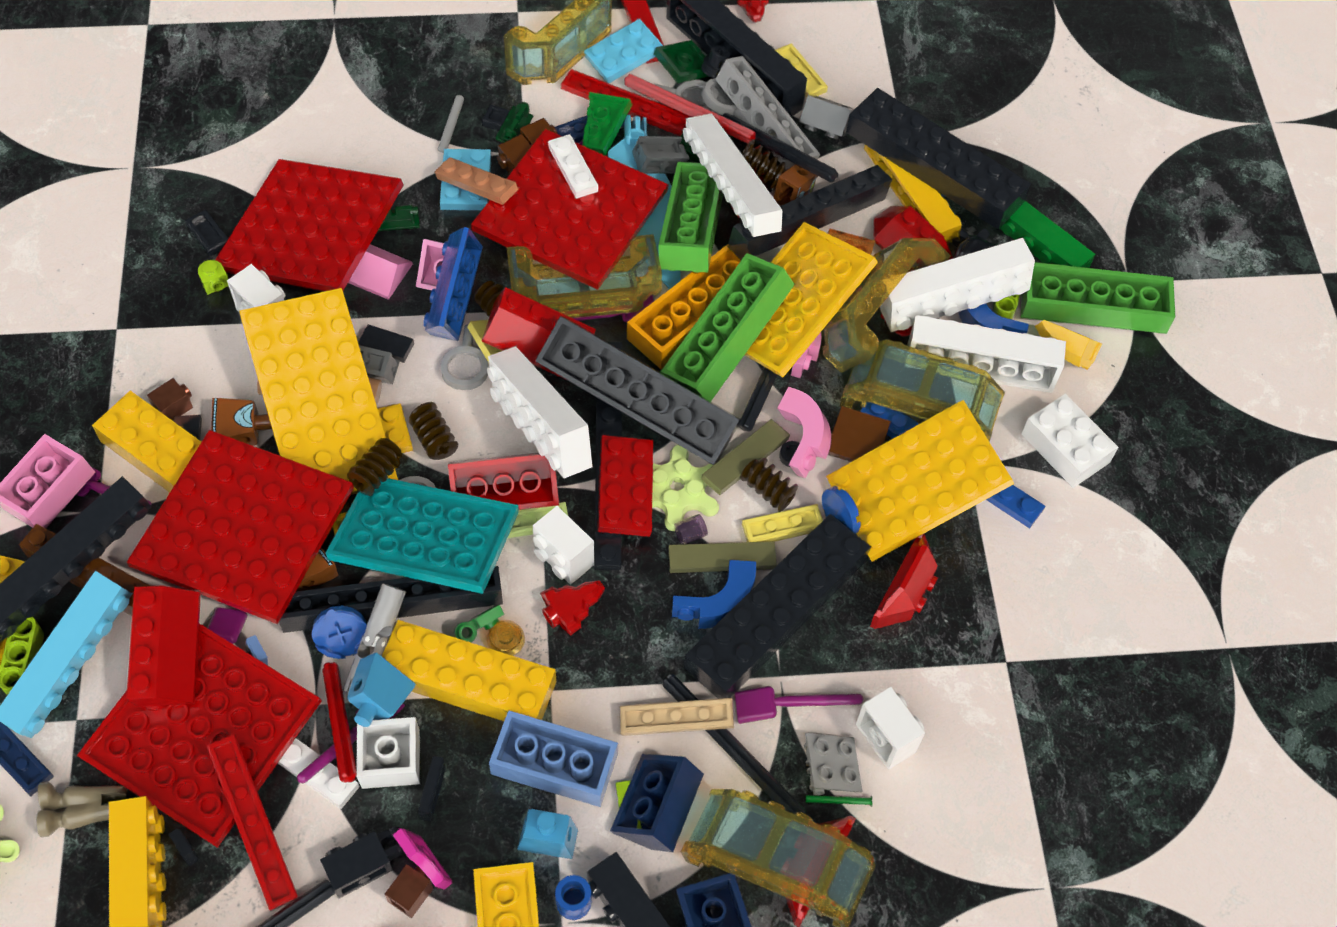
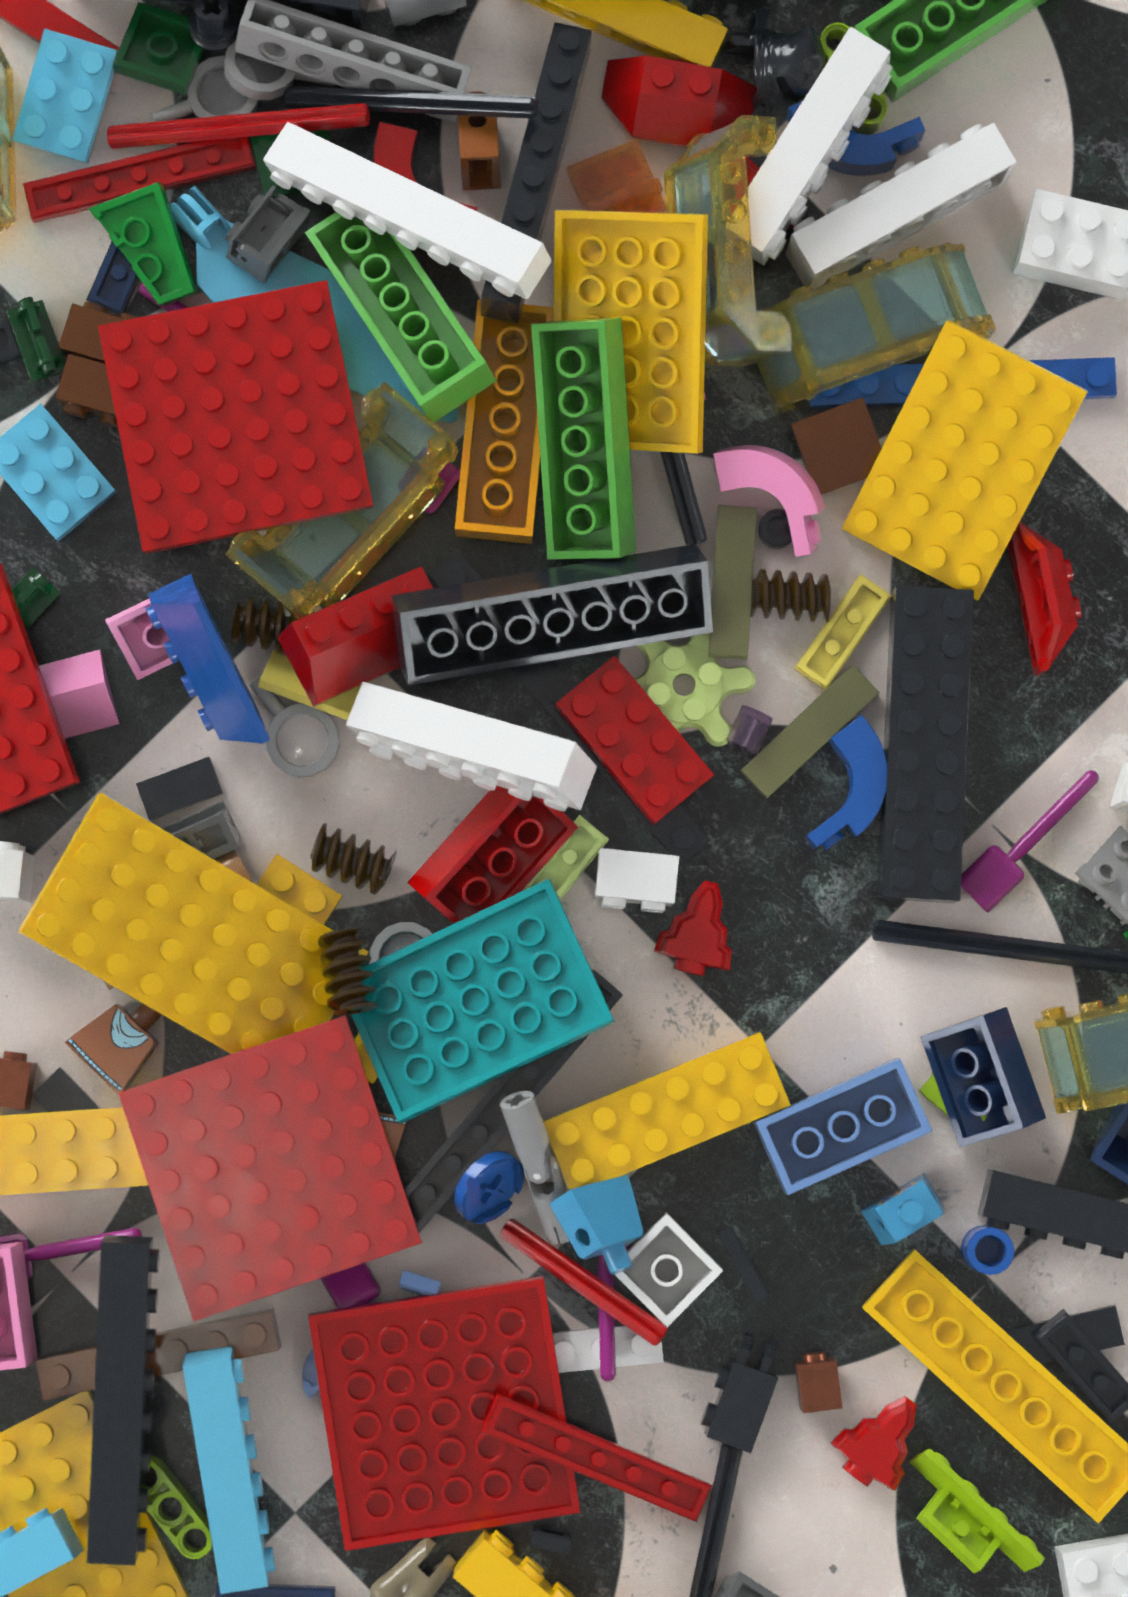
camera: 45 degrees left, 25 degrees up
(163, 646) = (332, 1373): red slope -> none
(420, 853) = (804, 1343): dark pink tile -> none
(476, 180) = (86, 481): nougat plate -> none
(485, 619) = (621, 1036): green plate -> none
(506, 637) = (660, 1032): clear yellow brick -> none
(573, 166) = (192, 360): white plate -> none
(676, 716) = (924, 967): tan tile -> none
(762, 164) = (420, 150): dark brown piece -> none
(841, 507) = (902, 568): blue tile -> none
(1079, 348) = (980, 99): yellow slope -> none

